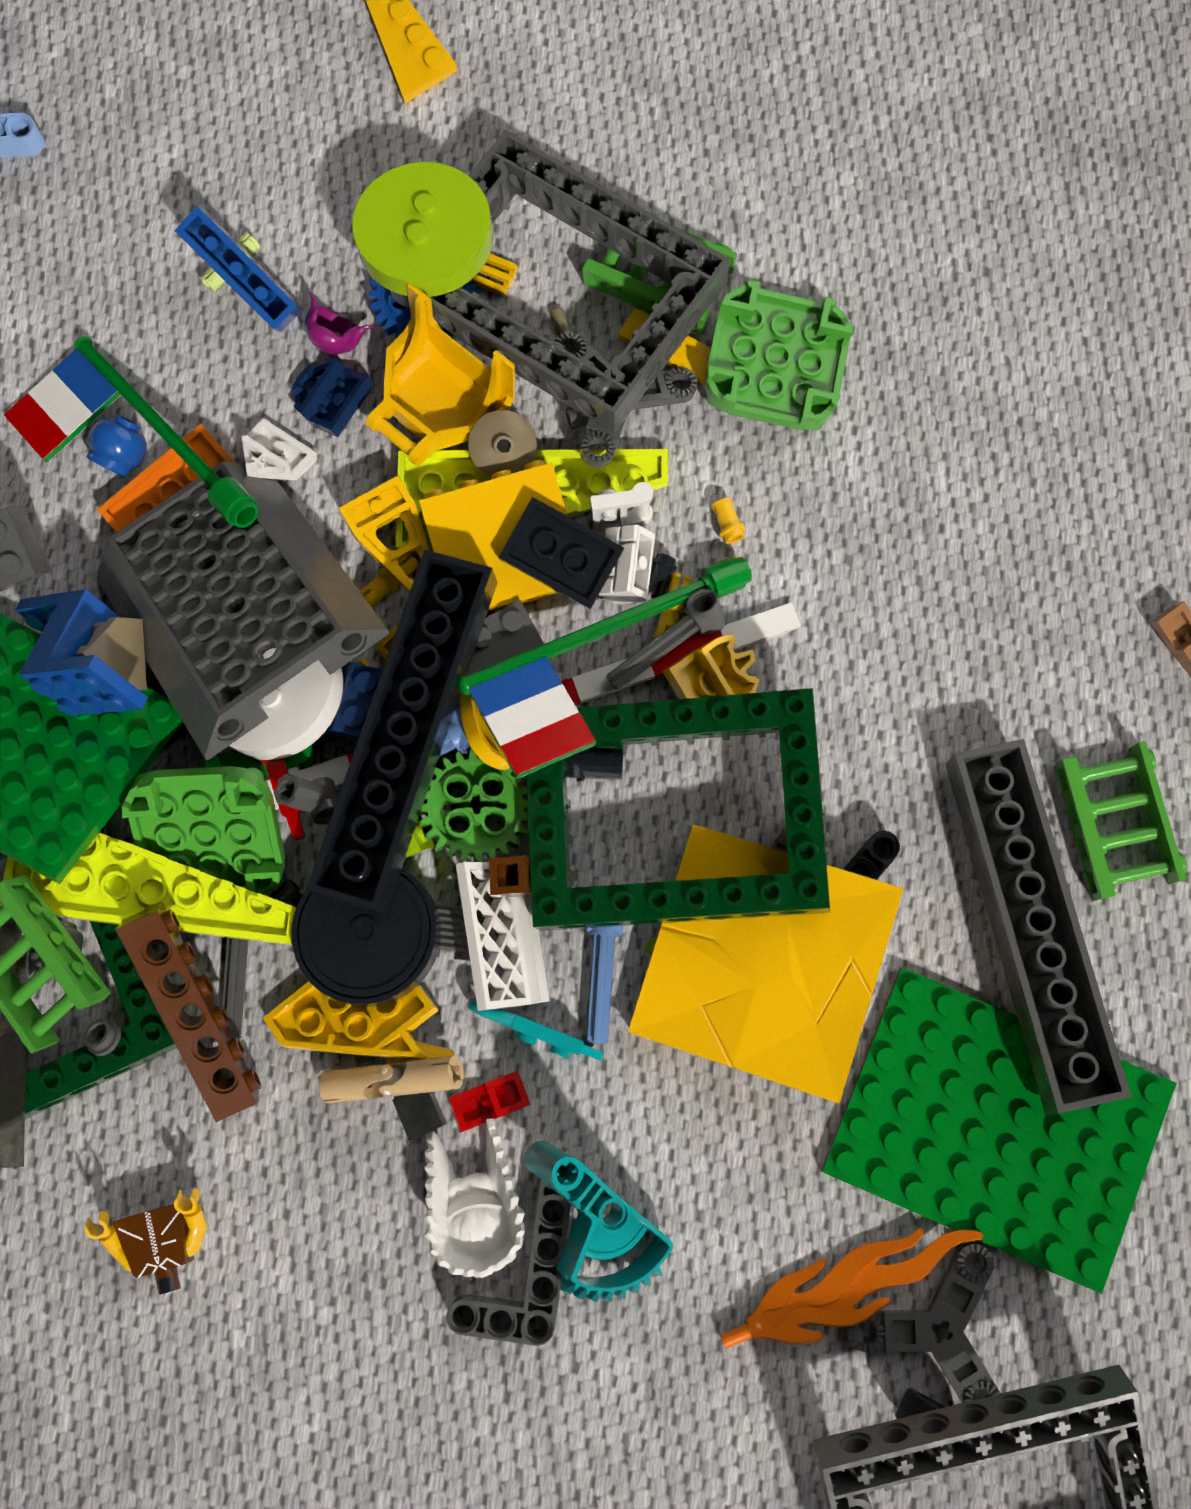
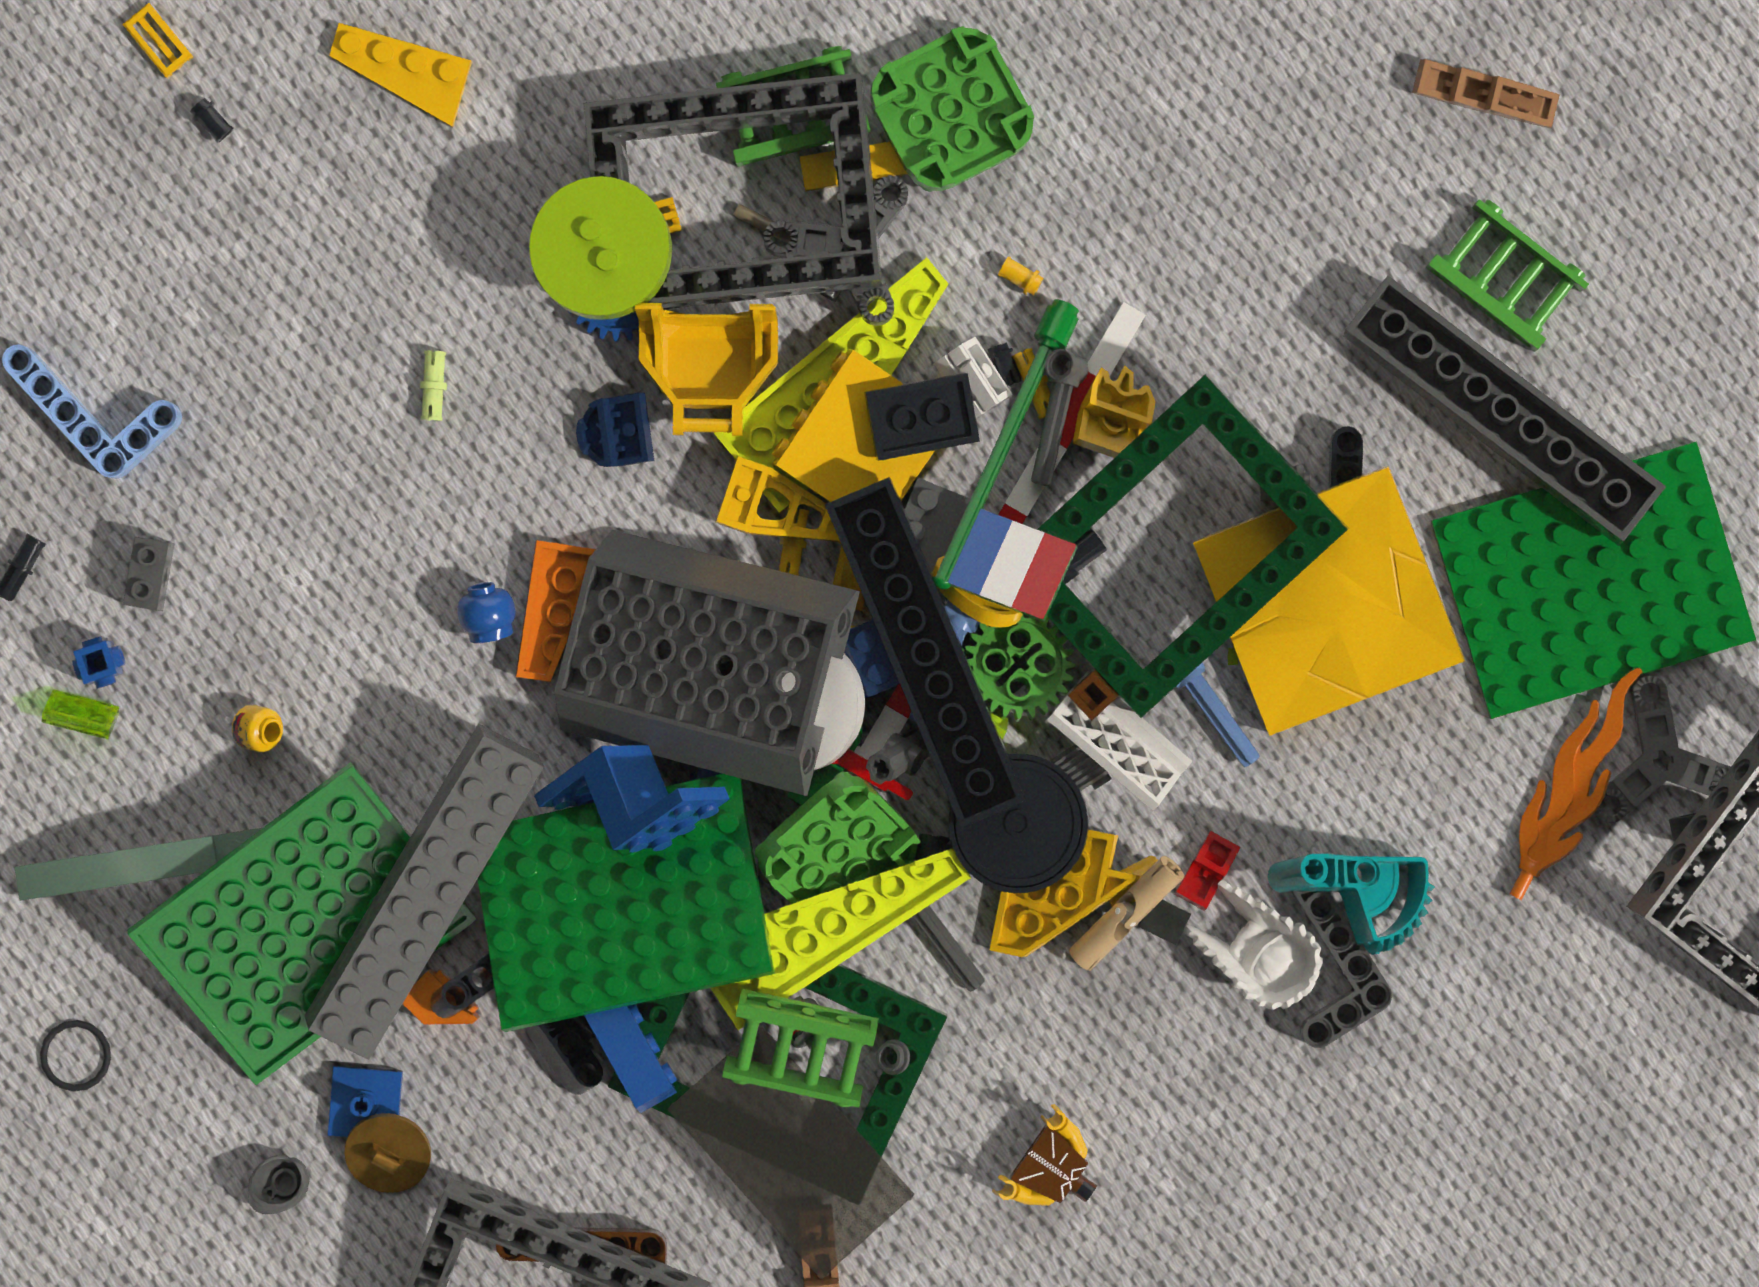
camera: 50 degrees left, 10 degrees up
(80, 392) = (414, 591): flag -> none
(120, 646) = (658, 770): dark tan slope -> none
(221, 1095) = (861, 959): reddish brown brick -> none
(238, 269) = (462, 391): blue brick -> none
(275, 454) = (615, 515): white slope -> none
(322, 324) = (557, 371): magenta hair -> none
(495, 427) = (783, 362): dark tan dish -> none
(532, 1031) = (1197, 794): teal plate -> none
(610, 507) = (926, 345): white plate -> none

